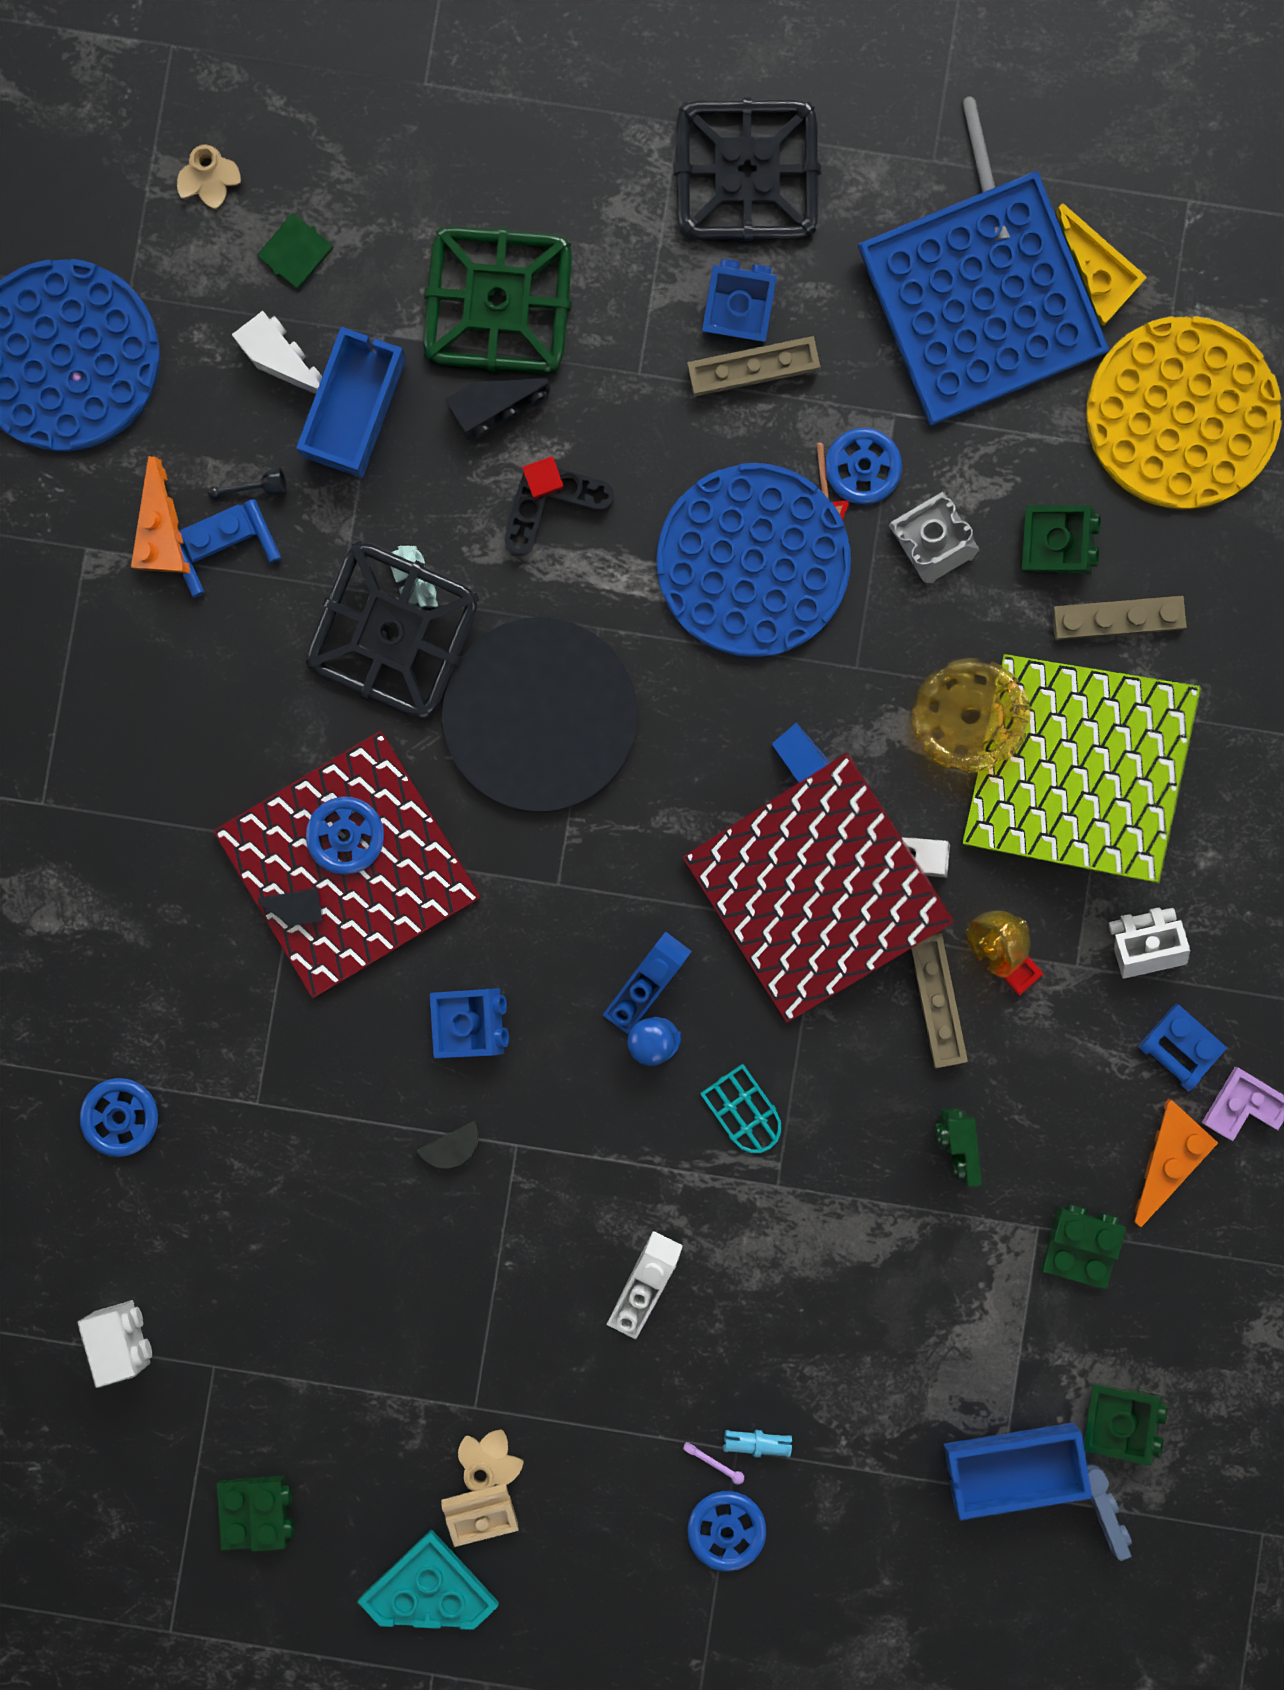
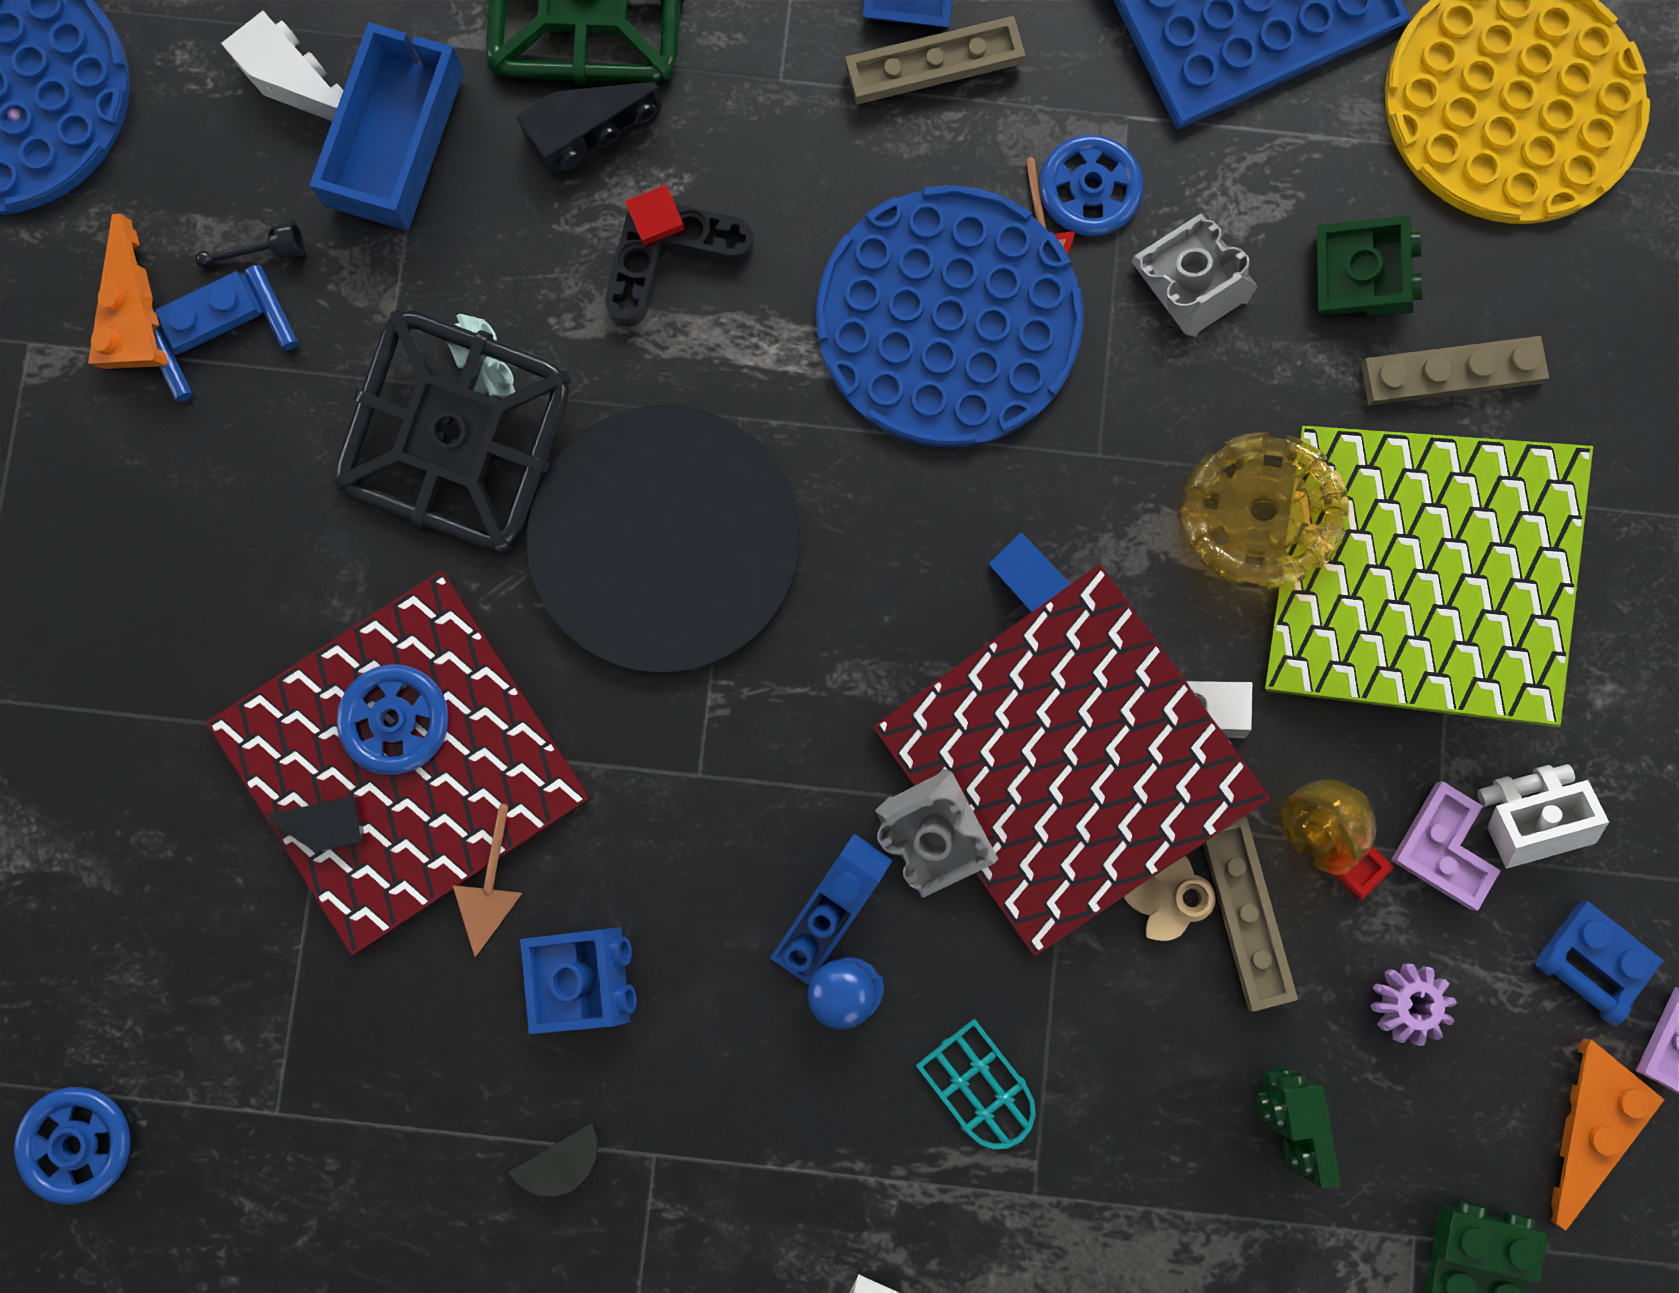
camera: 10 degrees left, 5 degrees down
(406, 970) = (485, 907): none -> nougat piece
(721, 934) = (934, 834): none -> light grey slope
(879, 988) = (1163, 900): none -> tan plate
(1059, 1071) = (1429, 1005): none -> lavender gear
(1073, 963) = (1434, 850): none -> lavender plate

